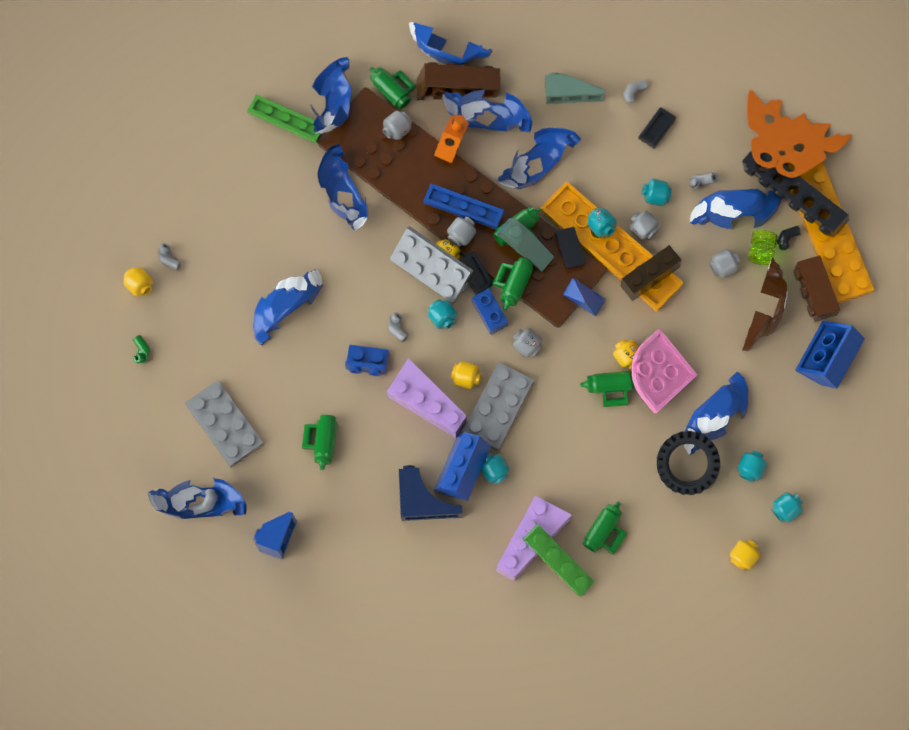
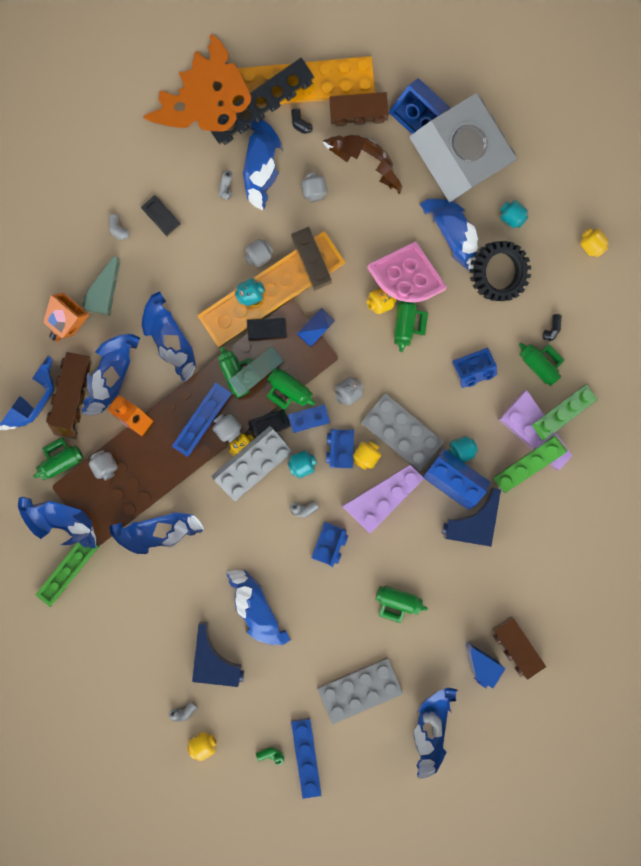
camera: 85 degrees left, 15 degrees up
(145, 386) = (306, 758): none -> blue plate
(220, 271) = (211, 666): none -> dark blue arch
(301, 571) = (518, 648): none -> reddish brown brick
(467, 348) = (341, 448): none -> blue bracket
(495, 536) = (530, 464): none -> bright green plate
(533, 58) = (64, 316): none -> orange torso
(582, 463) = (475, 368): none -> blue bracket
(636, 533) = (555, 329): none -> black arm
(656, 192) = (228, 232): teal head -> none
(762, 245) = (307, 147): clear neon green wheel -> none
(787, 507) = (559, 192): teal head -> none
(807, 397) = (463, 147): none -> light grey panel

